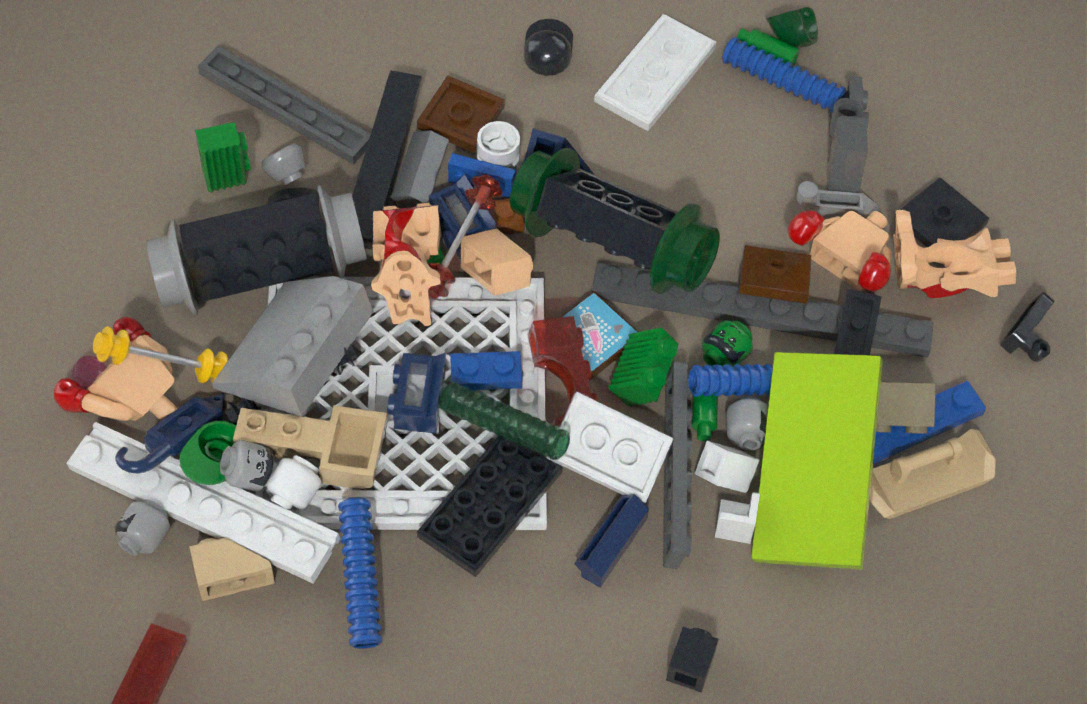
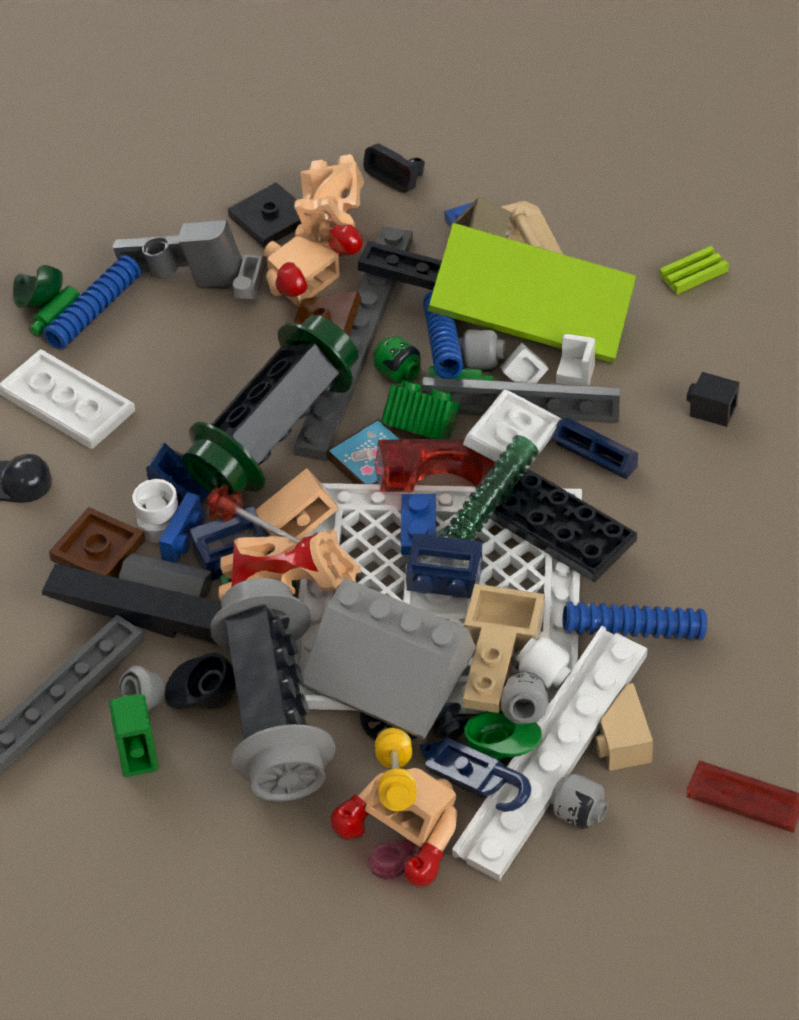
camera: 80 degrees left, 10 degrees down
(922, 639) = (690, 267): none -> lime tile

